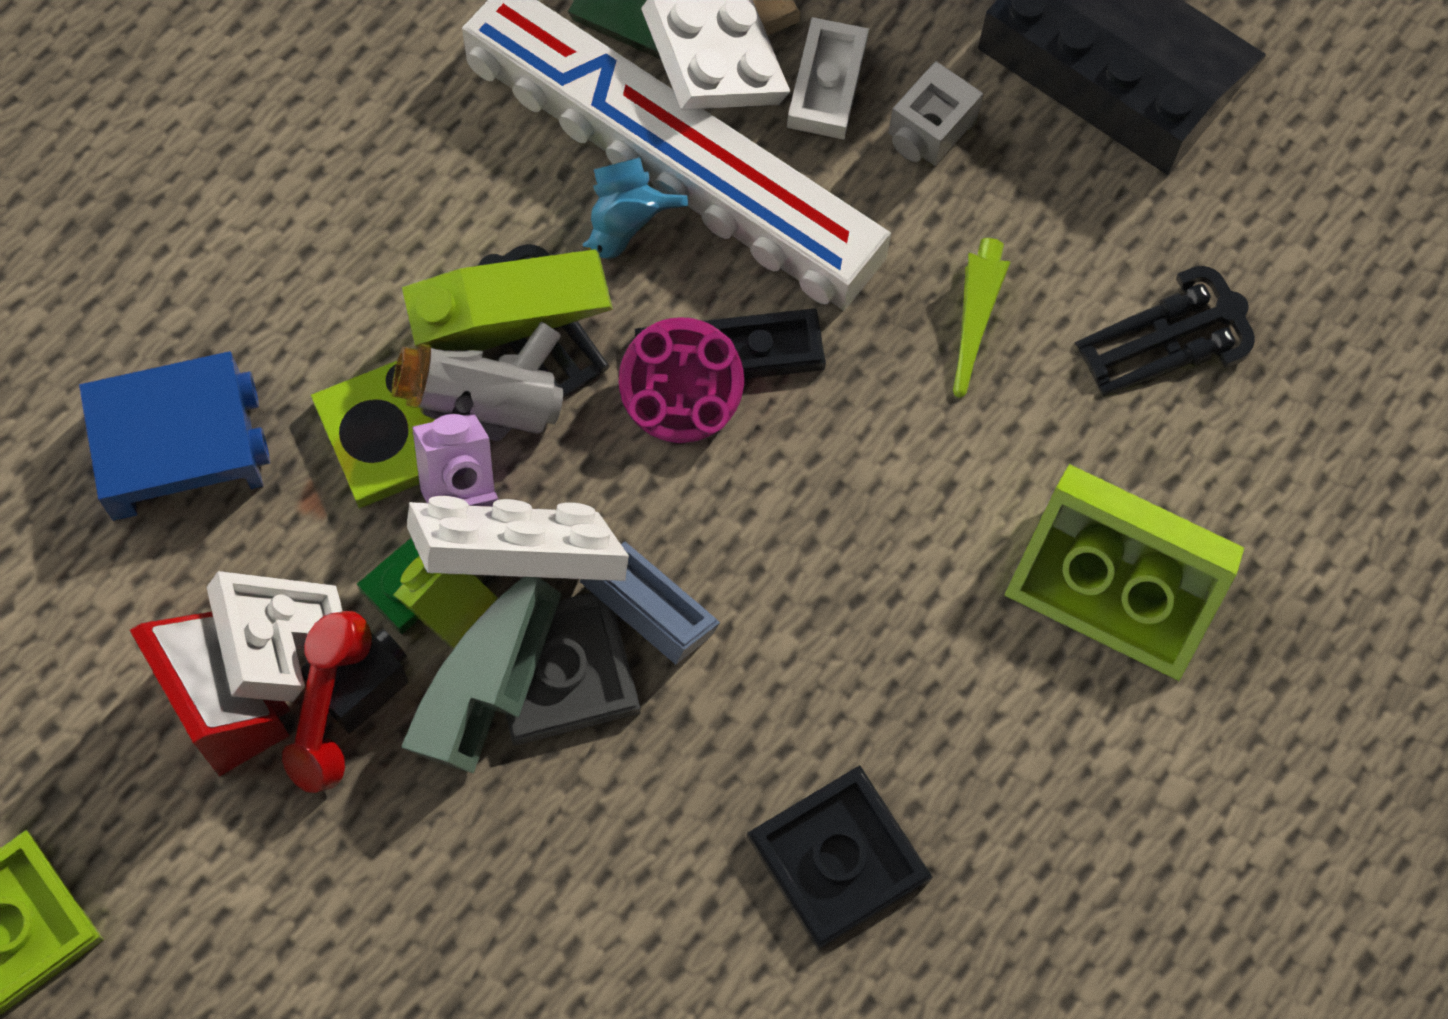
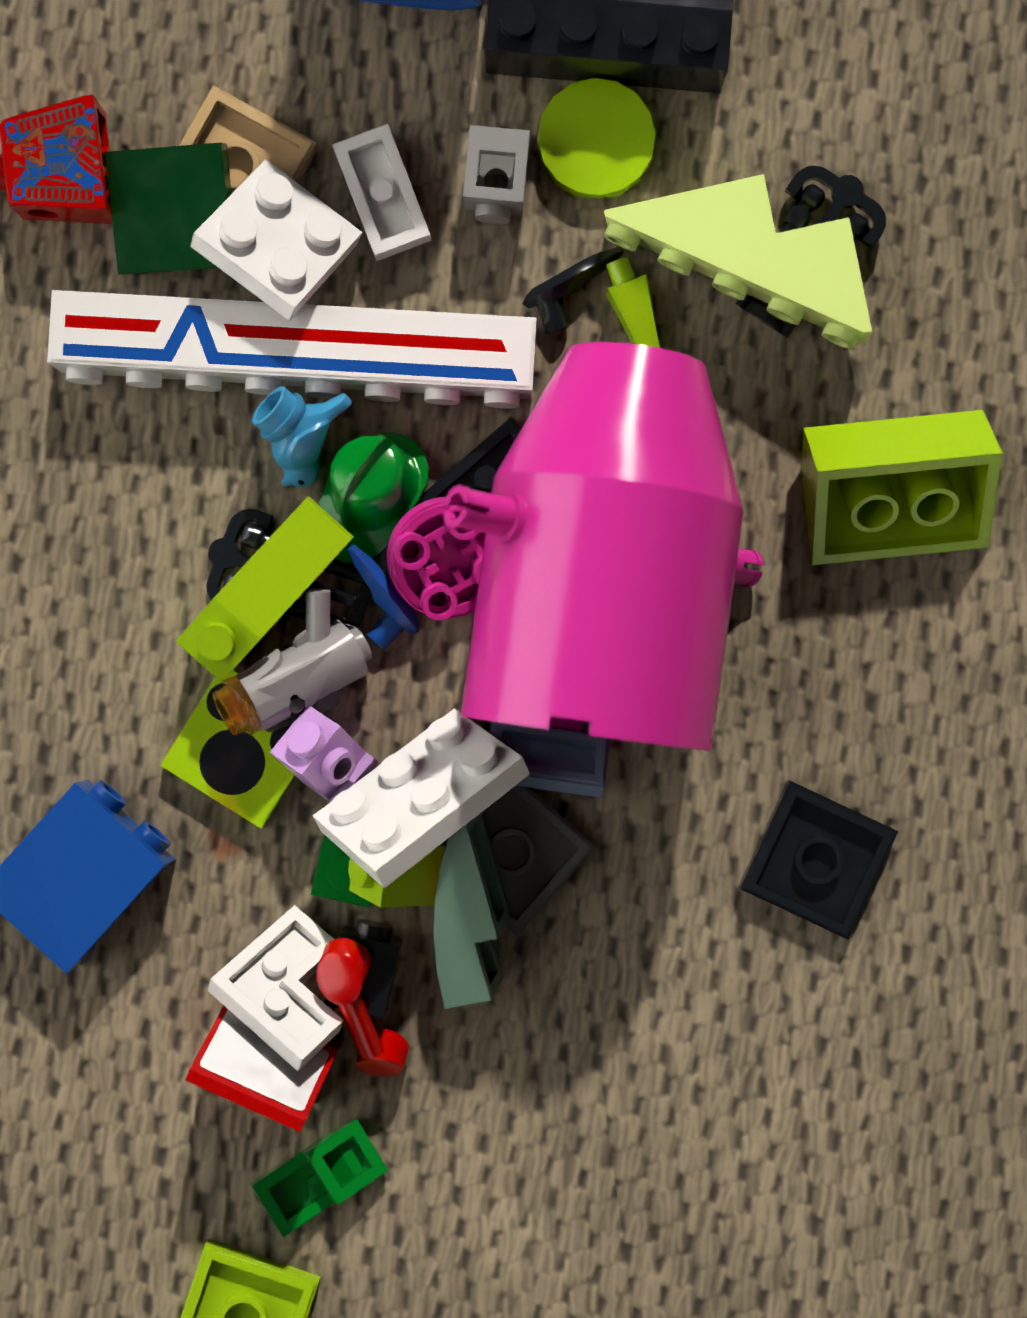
camera: 30 degrees left, 20 degrees up
(173, 841) = (319, 1177): none -> green slope
(606, 381) = (399, 613): none -> blue bar
(655, 283) = (373, 487): none -> green piece
(814, 439) = (609, 554): none -> dark pink piece
(934, 235) = (567, 282): none -> black bar
(1037, 145) = (596, 138): none -> lime tile
(1103, 281) = (733, 239): none -> yellowish green slope

